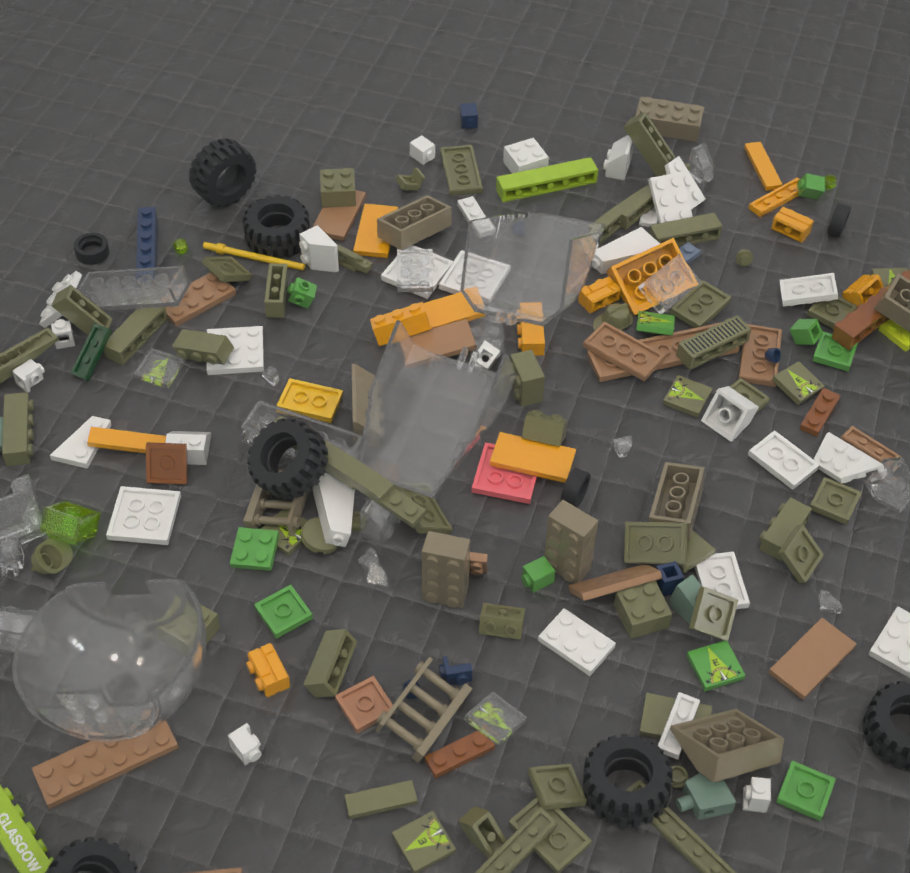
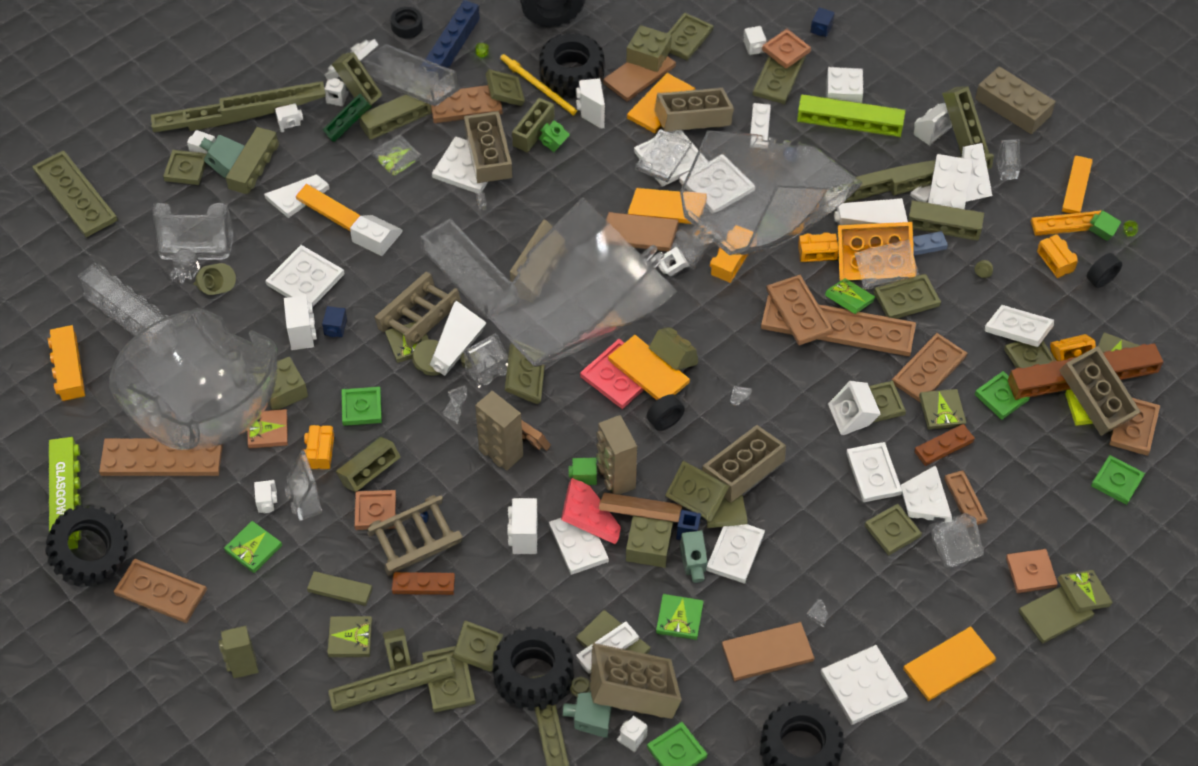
camera: 30 degrees right, 5 degrees up
(70, 522) = (242, 257): clear neon green brick -> none
(166, 463) = (346, 241): dark orange plate -> none
(170, 556) = (300, 322): none -> white brick
(203, 347) = (437, 151): olive brick -> none
(203, 543) = (334, 321): none -> dark blue brick
(210, 681) = (269, 430): none -> nougat tile
(251, 323) = (488, 147): none -> dark tan brick
(254, 549) = (372, 344): bright green plate -> none
(263, 802) = (253, 546): none -> bright green tile
(271, 446) = (442, 290): black tyre -> none
(284, 715) = (302, 489): none -> clear slope
(311, 400) = (498, 237): yellow plate -> none
(352, 260) = (617, 120): olive hinge -> none
(364, 166) = (688, 35): none -> olive tile
(372, 484) = (477, 312): olive slope -> none
(412, 181) = (721, 67): olive bracket -> none
(412, 317) = (617, 200): light orange brick -> none
(455, 146) = (786, 48): none -> nougat plate
(455, 674) = (461, 521): dark blue bracket -> none
(495, 718) = (468, 570): clear tile -> none
(501, 621) = (527, 488): olive bracket -> none
(523, 649) = (523, 525): none -> white brick
(530, 379) = (691, 296): olive brick -> none
(570, 610) = (583, 511): none -> coral plate
(615, 315) = (818, 275): olive piece -> none
(687, 396) = (830, 375): olive tile -> none
(713, 342) = (886, 337): olive brick -> none
(713, 613) = (699, 572): olive plate -> none
(773, 355) = (939, 373): dark blue hinge -> none
(781, 527) = (826, 532): olive brick -> none
(801, 553) = (820, 559): olive plate -> none
(806, 331) = (985, 364): bright green brick -> none

